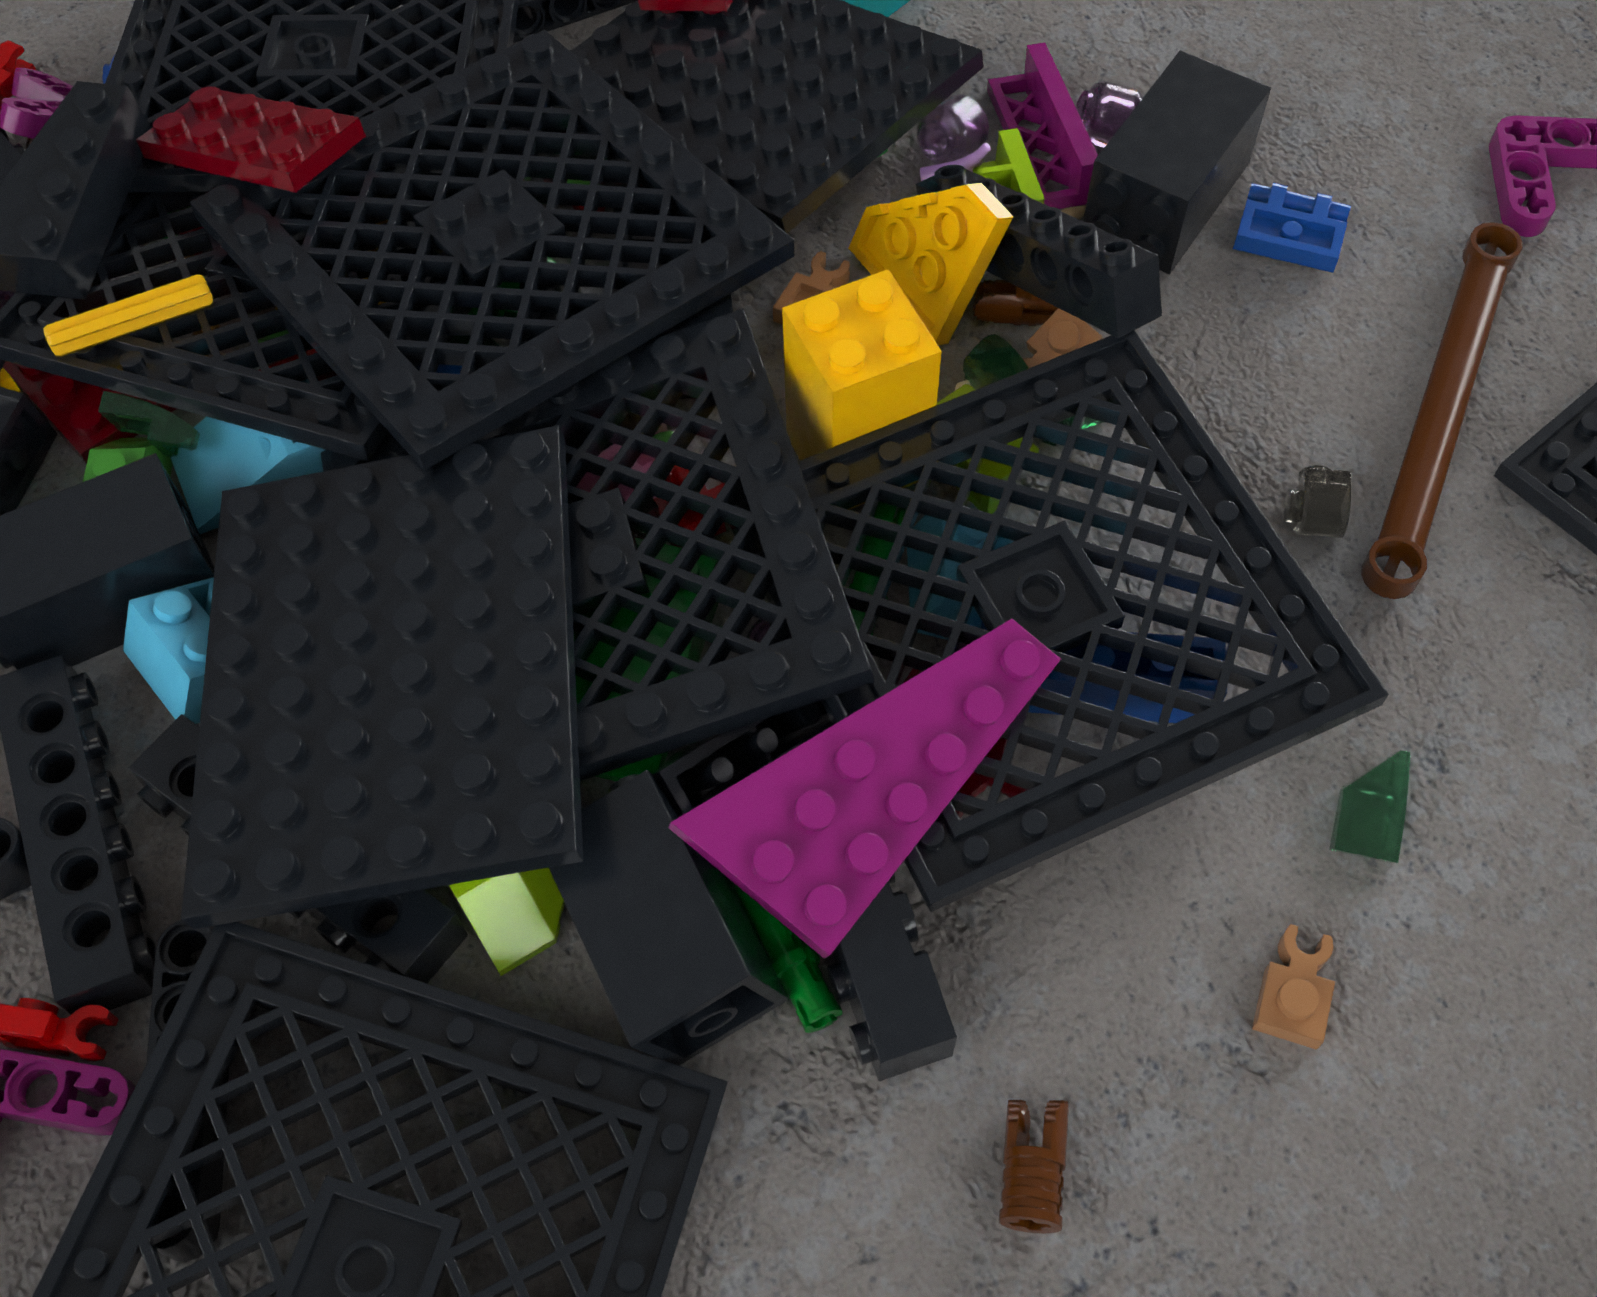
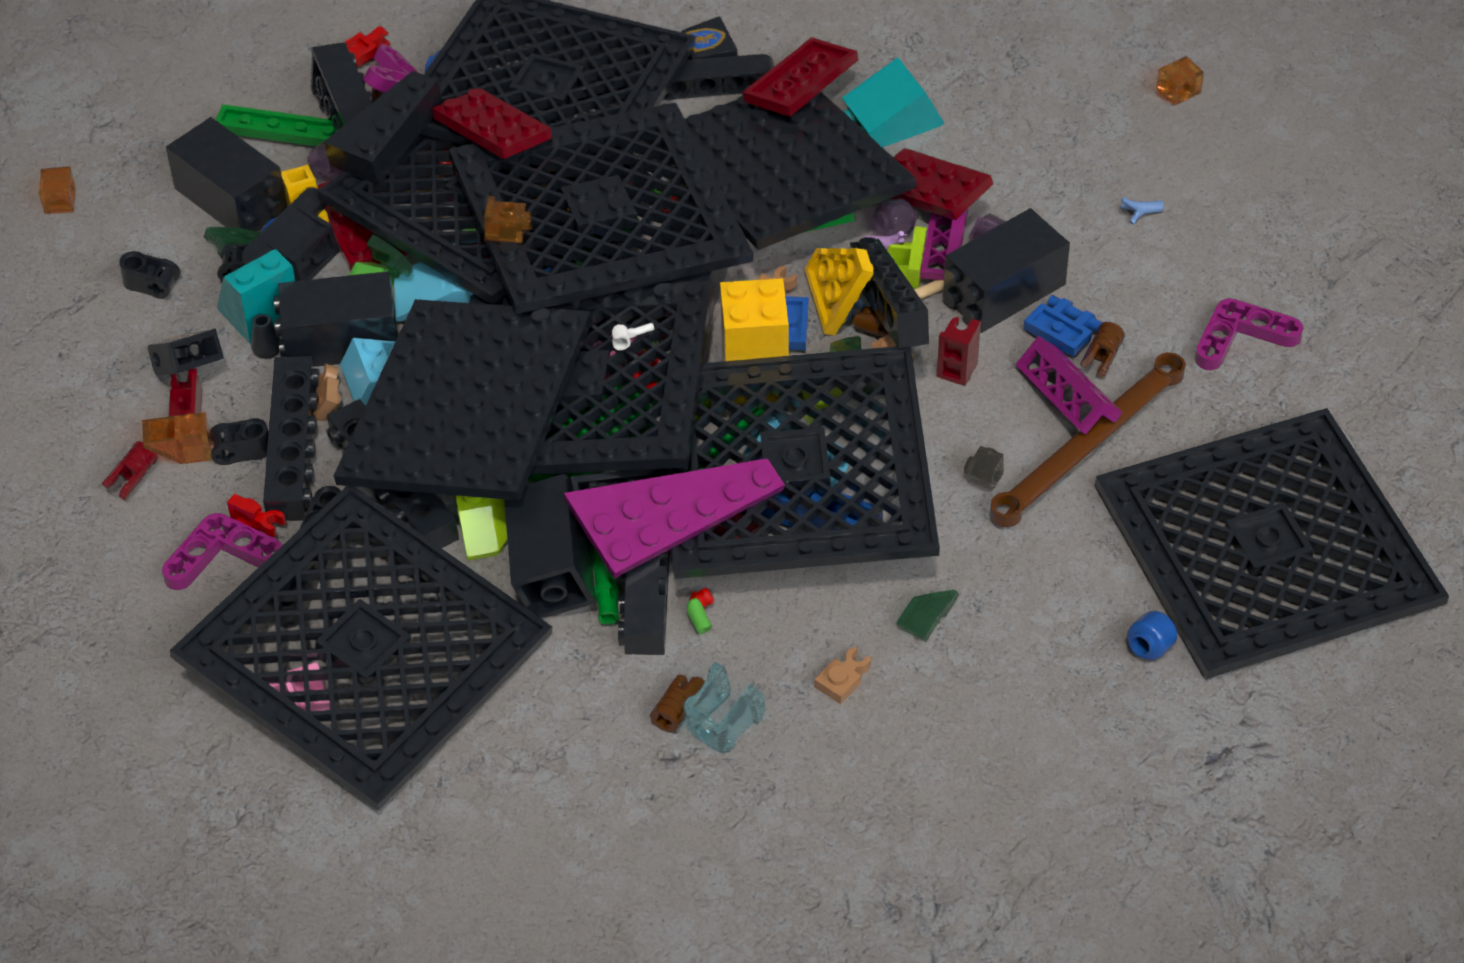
camera: 20 degrees right, 10 degrees down
(117, 715) = (327, 392): none -> medium nougat plate
(128, 315) = (398, 199): yellow axle -> none
(343, 301) = (506, 220): none -> clear orange brick
(638, 455) = (622, 335): none -> white hand
(974, 944) = (696, 610): none -> bright green arm
(1021, 56) = (941, 185): none -> dark red plate
(1186, 310) = (958, 352): none -> dark red hinge
(1194, 1137) = (746, 710): none -> clear light blue piece
(1293, 19) = (1141, 208): none -> medium blue bar
(1376, 246) = (1104, 347): none -> reddish brown hinge
(1383, 309) = (1075, 379): none -> magenta fence

